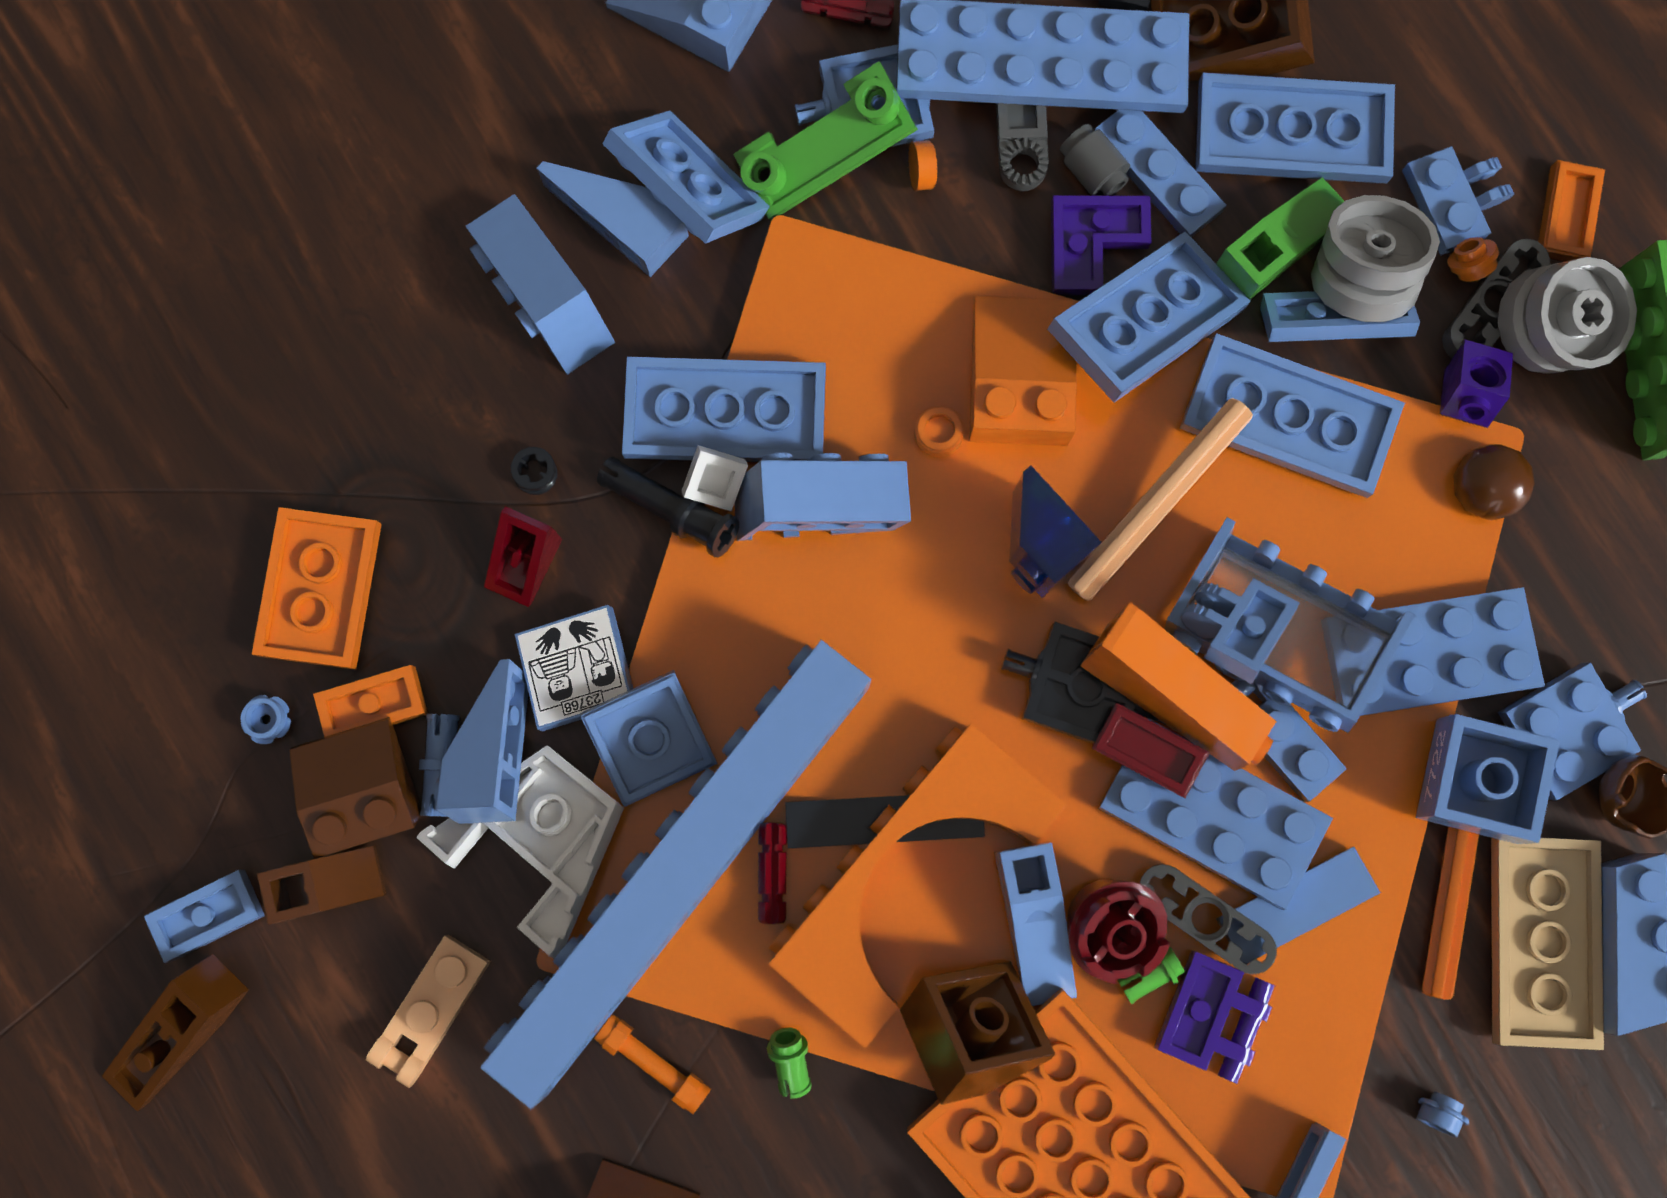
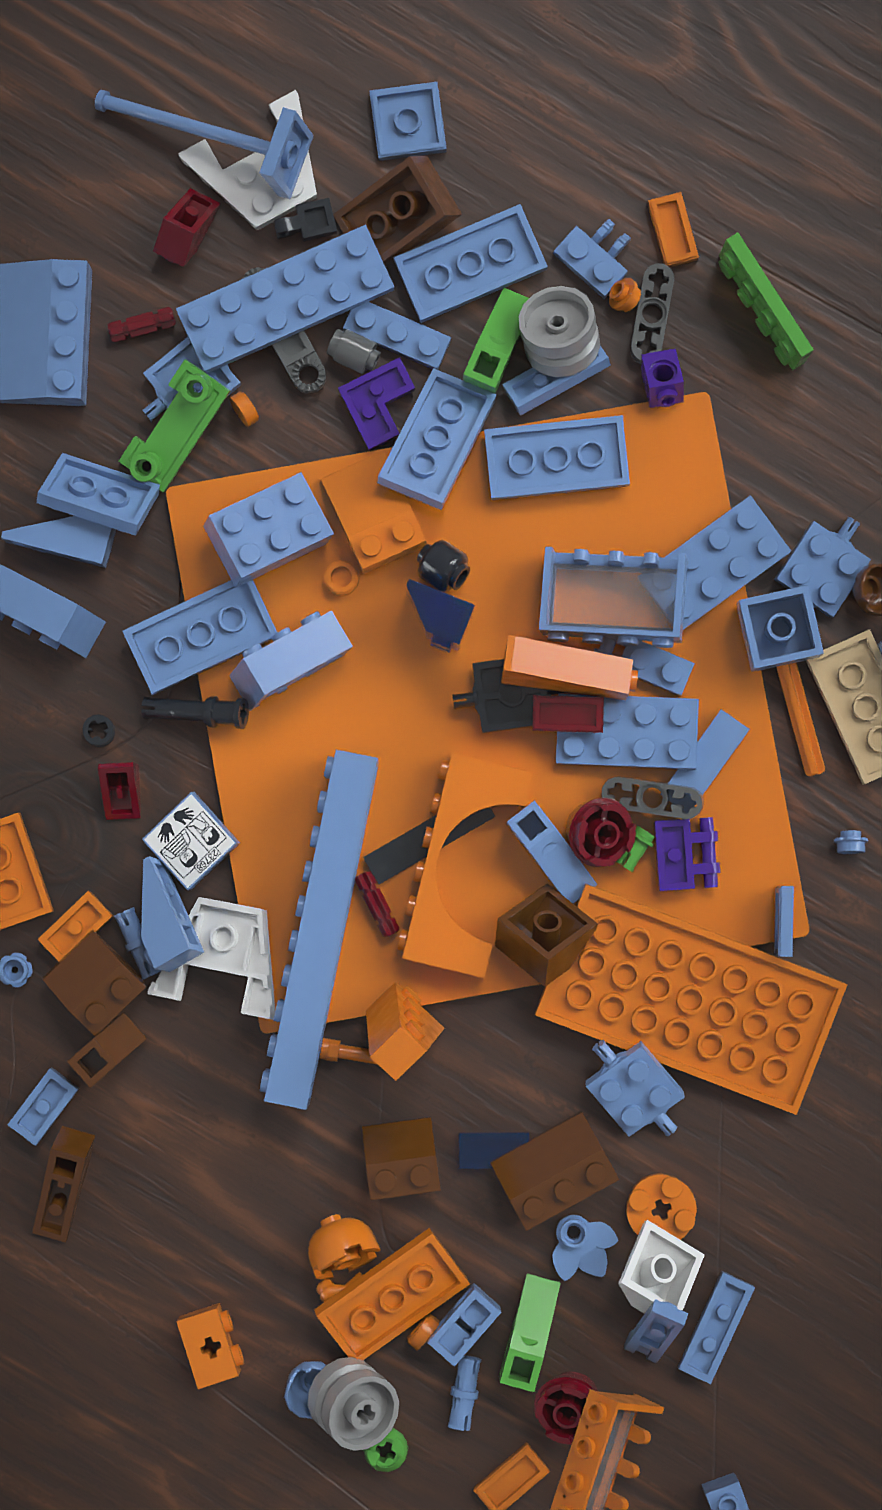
camera: 30 degrees left, 5 degrees up
(429, 1009) = (210, 1091): light nougat plate -> none
(648, 738) = (259, 860): medium blue tile -> none
(712, 1067) = (399, 1030): none -> orange wedge
(714, 478) = (217, 680): white plate -> none
(788, 1052) = (441, 1005): bright green pin -> none
(877, 319) = (268, 529): none -> medium blue brick
(1080, 477) = (443, 566): none -> black head
(1160, 499) = (500, 553): light nougat axle -> none
(1250, 630) = (590, 611): medium blue hinge -> none
(1493, 481) = (702, 436): reddish brown hair -> none
(1567, 316) = (697, 308): light grey wheel -> none

